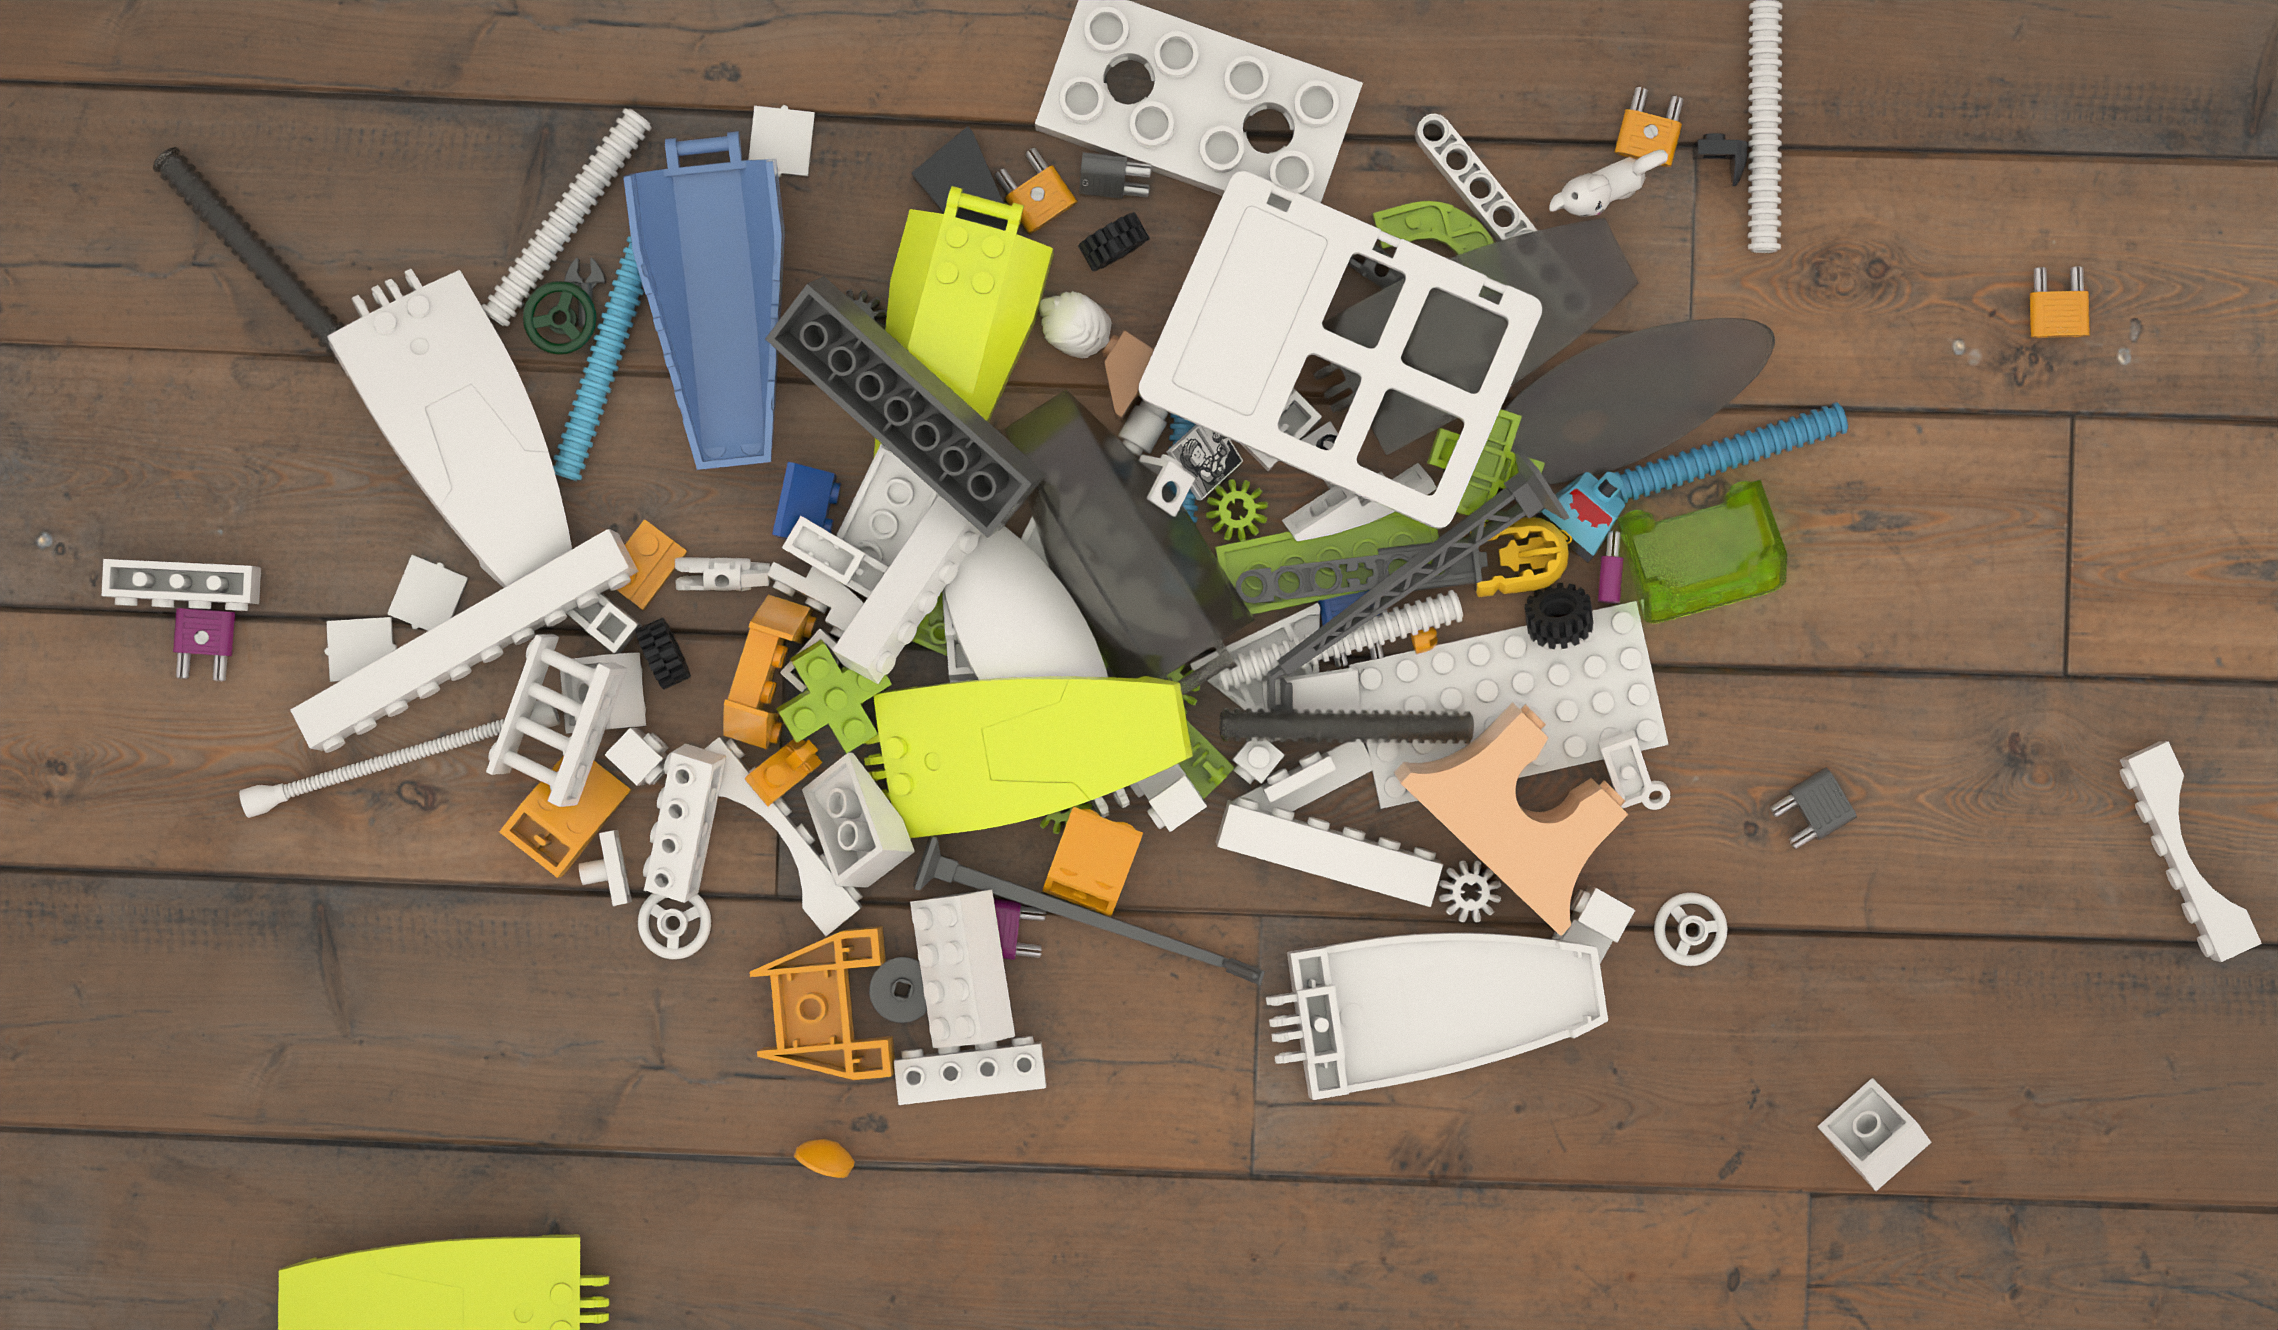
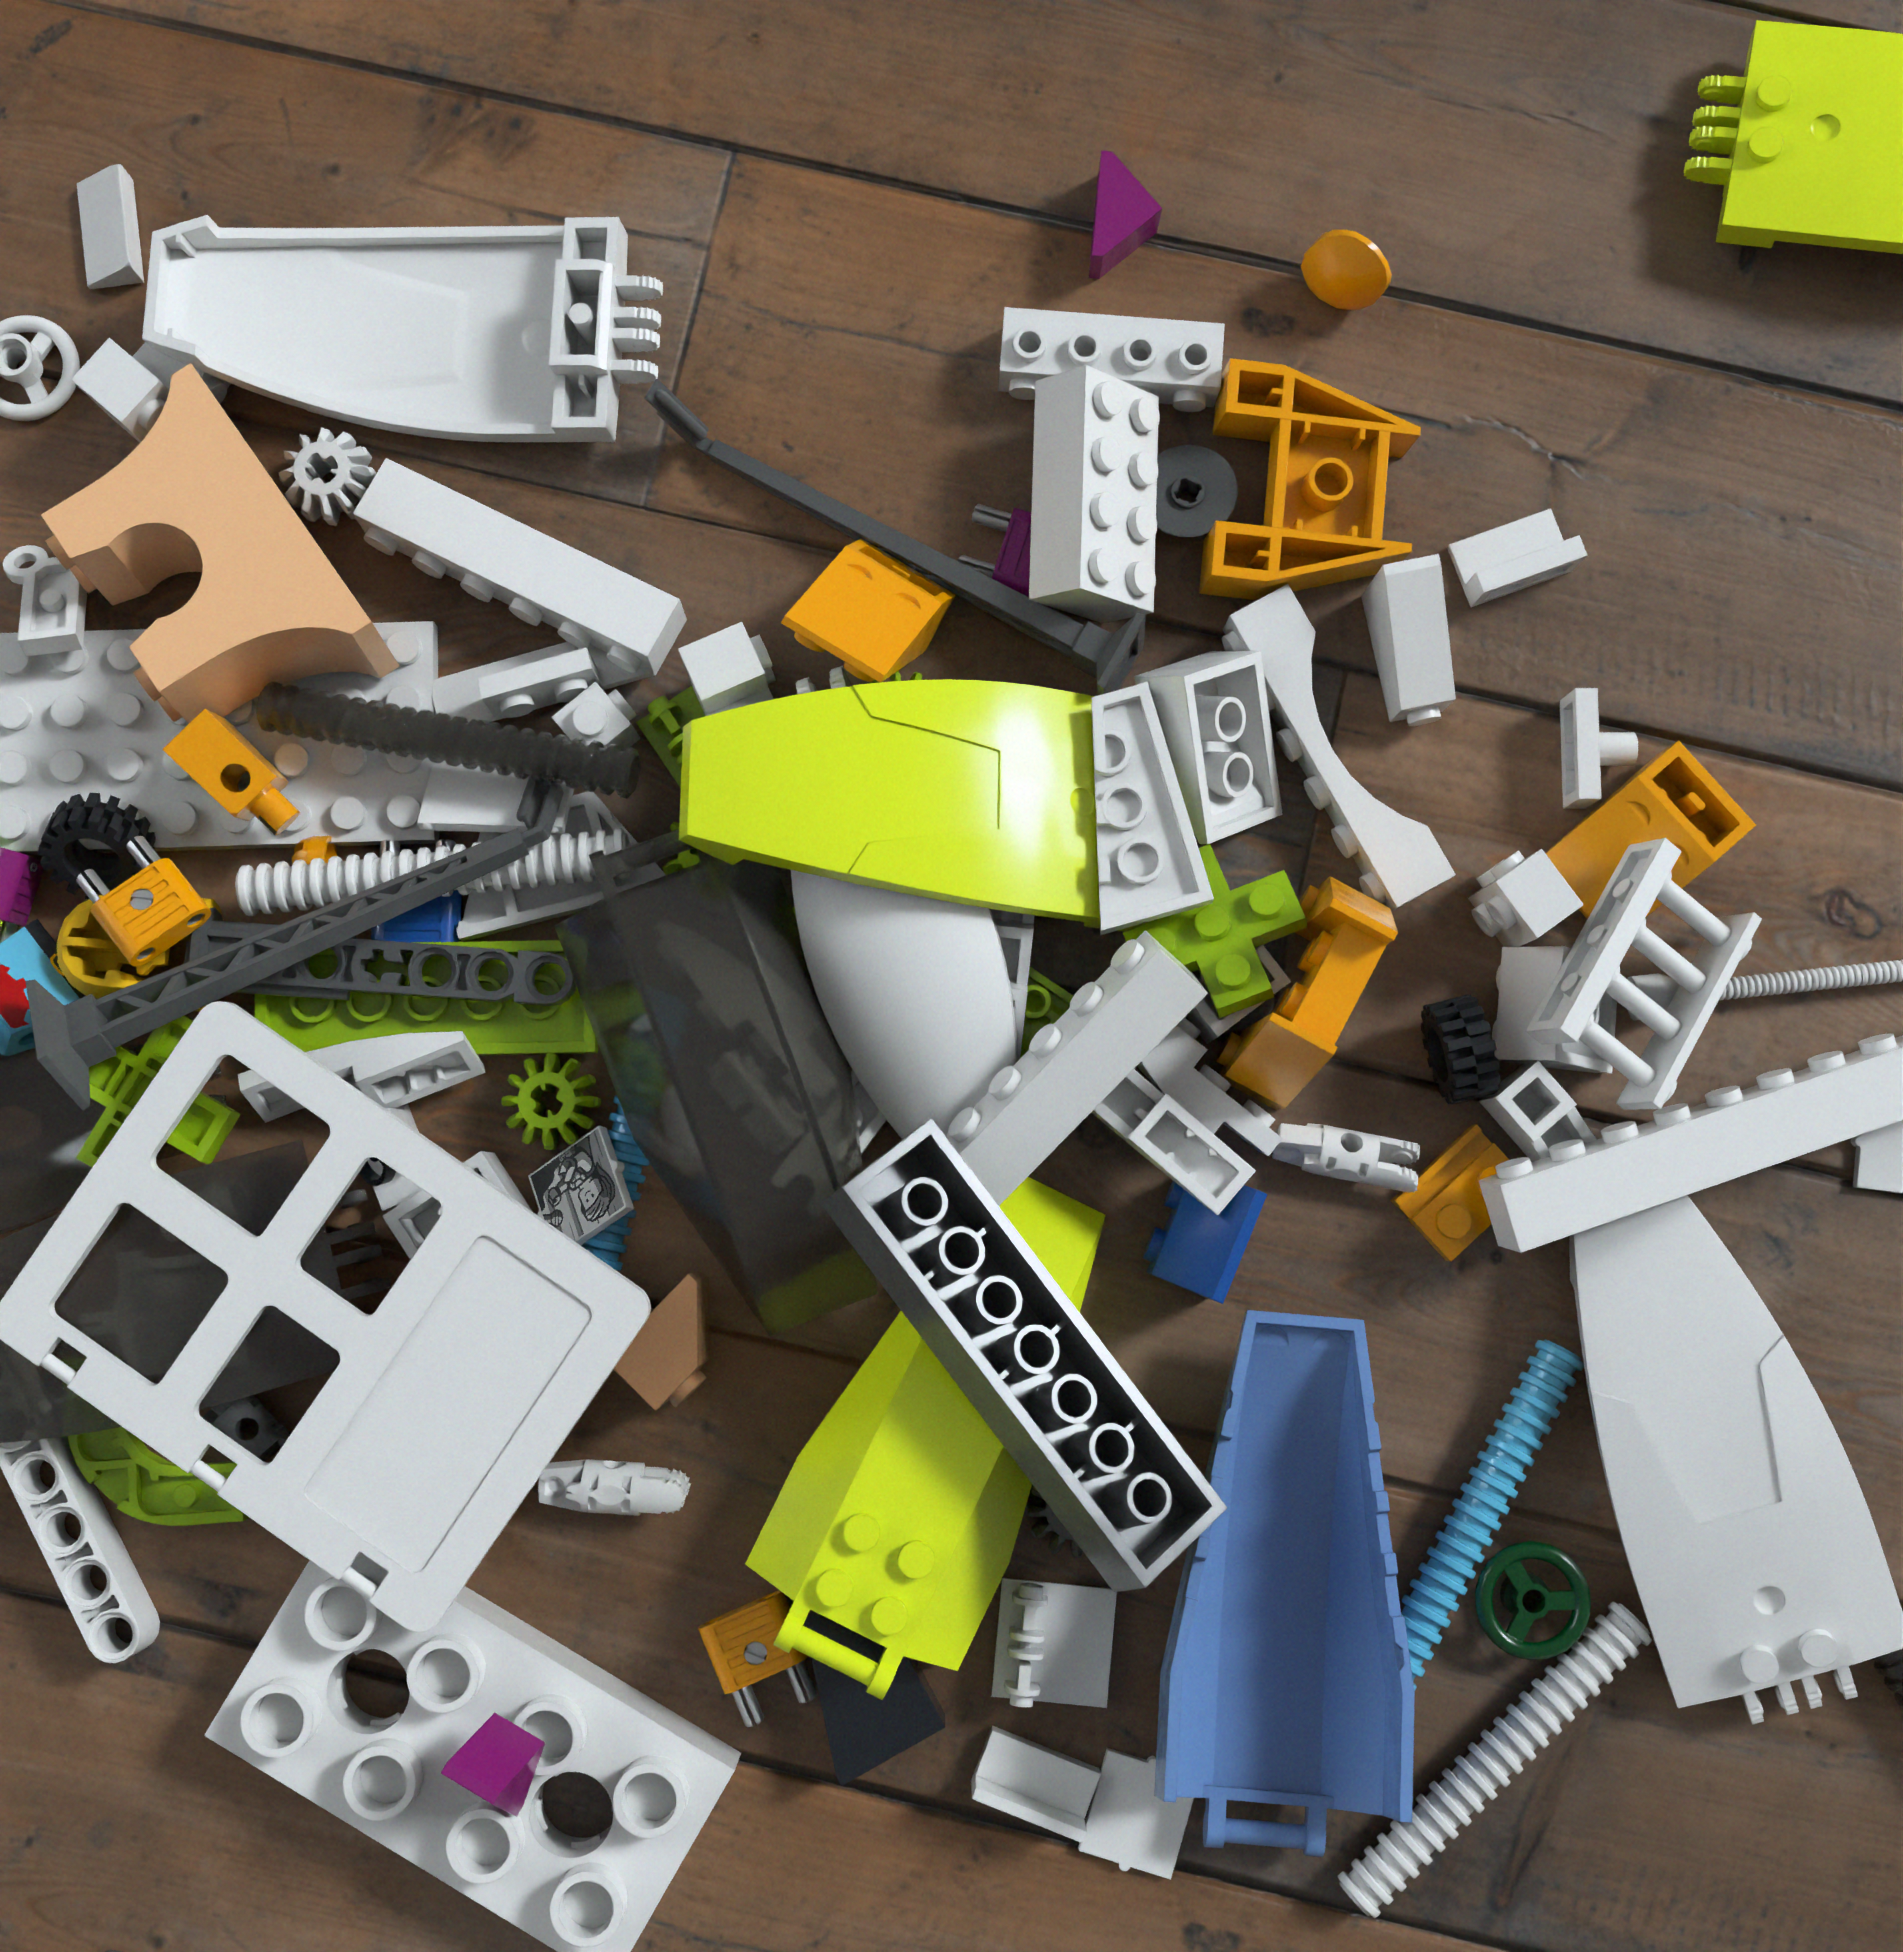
camera: 170 degrees left, 5 degrees down
(427, 594) = (1795, 1211): white piece -> none
(597, 276) = (1463, 1652): dark grey bar -> none
(672, 950) = (1522, 648): white piece -> none
(679, 991) = (1514, 557): none -> white panel
(683, 822) = (1472, 789): white brick -> none
(738, 913) = (1411, 639): none -> white slope
(783, 770) = (1309, 838): light orange hinge -> none
(849, 148) = (1034, 1783): none -> white panel
(853, 234) = (1053, 1643): none -> white hinge
(886, 508) = (1082, 1202): white plate -> none
(892, 752) = (1142, 825): none -> white wing
(982, 1172) = (1122, 215): none -> magenta slope
(1075, 324) = (737, 1435): white hair -> none
(1106, 175) = (642, 1663): dark grey piece -> none
(1113, 241) = (650, 1554): black tyre -> none
(1143, 428) = (665, 1255): white brick -> none
(1145, 277) = (612, 1487): none -> white hinge
(1167, 470) = (631, 1173): white bracket -> none
(1175, 103) = (497, 1763): none -> magenta slope
(1489, 688) = (218, 757): none -> light orange torso
(1507, 578) = (149, 908): none -> light orange piece
(1656, 1034) = (110, 229): none -> white slope

